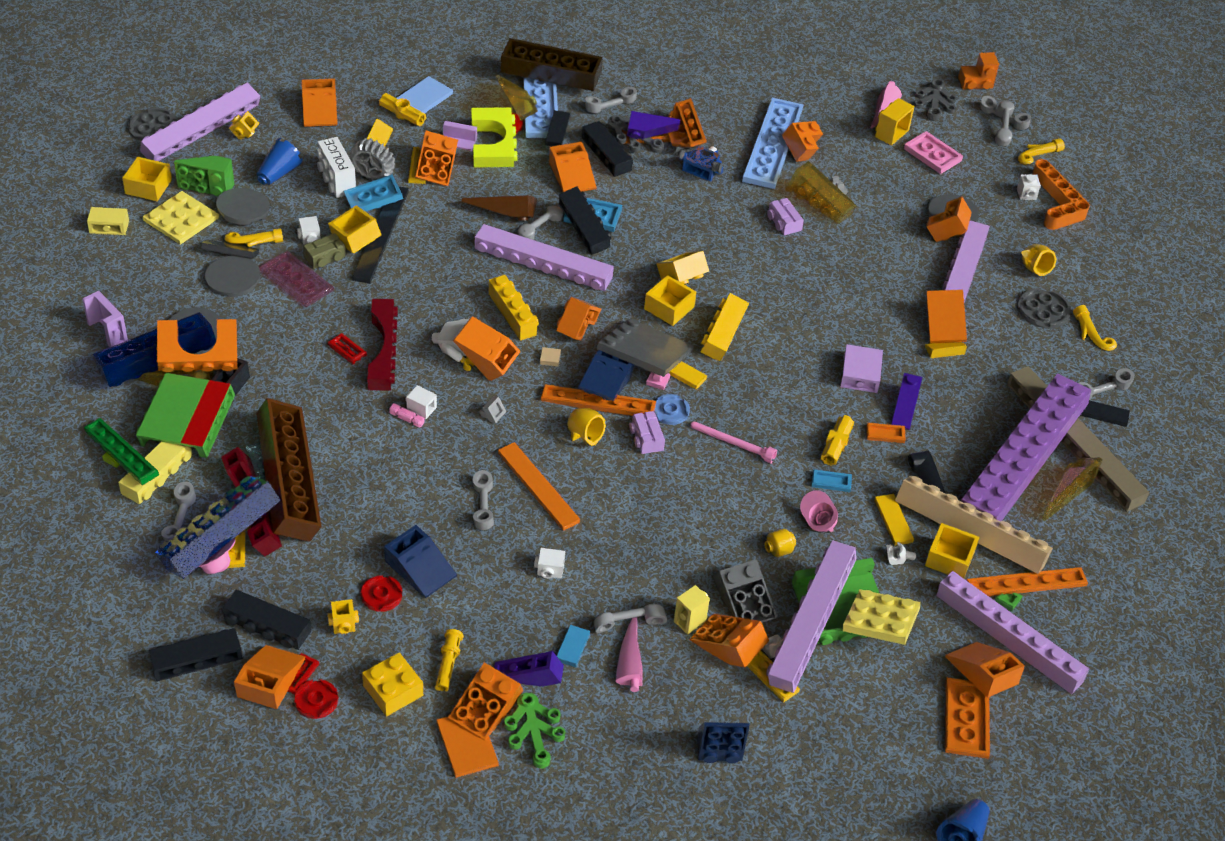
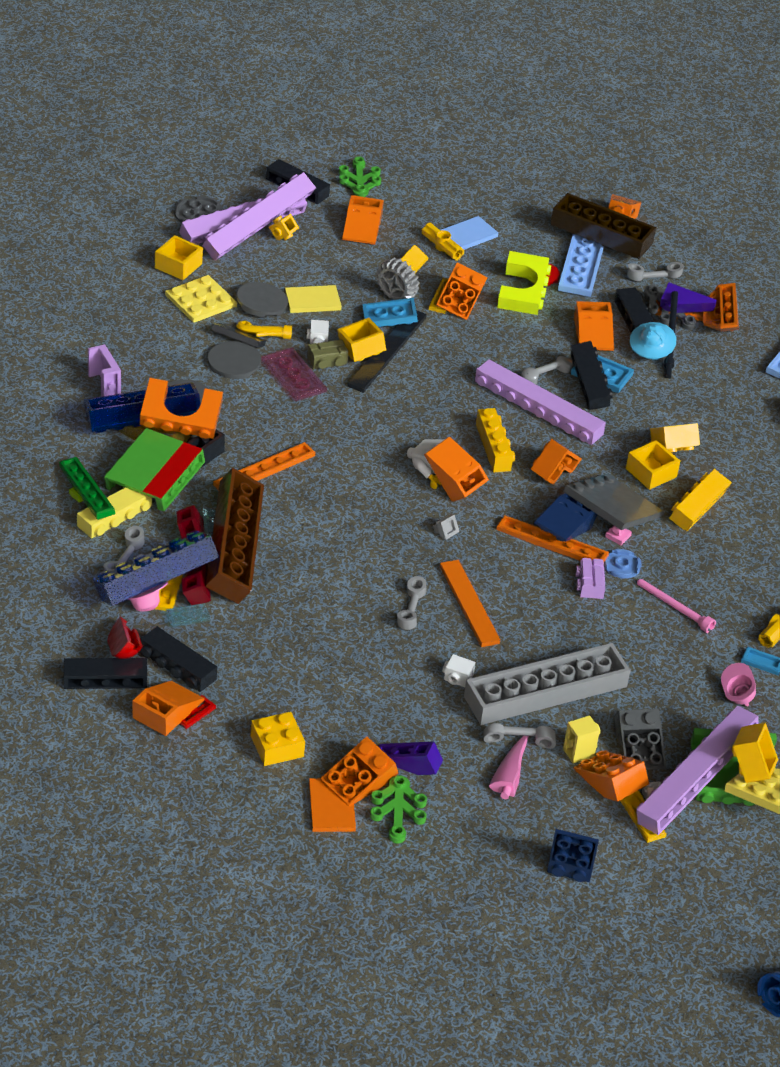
camera: 15 degrees right, 5 degrees down
(108, 221) = (131, 288): light yellow brick -> none
(205, 174) = (234, 263): bright green slope -> none
(205, 613) = (123, 641): none -> red brick
(218, 117) = (259, 216): none -> lavender brick
(240, 73) = (282, 172): none -> black brick
(262, 567) = (188, 615): none -> clear light blue tile
(278, 162) = (307, 266): blue cone -> none
(293, 194) = (313, 299): none -> light yellow tile
(302, 380) = (276, 463): none -> orange tile
(306, 71) = (359, 189): none -> bright green plant
(311, 703) = (210, 736): red tile -> none
(334, 345) = (321, 448): red tile -> none
(335, 166) = (360, 279): white brick -> none
(343, 616) = (248, 671): yellow brick -> none
(377, 598) = (291, 662): red tile -> none
(380, 370) = (349, 470): dark red arch -> none
(406, 415) = (362, 514): bright pink axle -> none
(419, 561) = (333, 641): dark blue slope -> none
(421, 401) = (379, 505): white brick -> none
(449, 652) = (339, 725): yellow pin -> none
(464, 133) = (496, 274): lavender panel -> none
(514, 206) = (527, 350): reddish brown wedge -> none
(519, 98) = (560, 251): clear yellow wedge -> none
(550, 356) = (518, 492): tan tile -> none
(557, 128) = (591, 286): black tile -> none
(563, 40) = (624, 206): none -> orange torso
(573, 645) = (458, 747): dark azure tile -> none
(585, 424) = (532, 557): yellow piece -> none
(632, 172) = (653, 340): none -> medium azure helmet
(638, 557) = (546, 683): none -> light grey brick
(652, 189) = (669, 361): none -> black bar
(688, 375) = (649, 536): yellow tile -> none
(701, 162) = (727, 345): torso -> none
(780, 542) = (691, 703): yellow head -> none
(864, 587) = (755, 753): none -> yellow piece

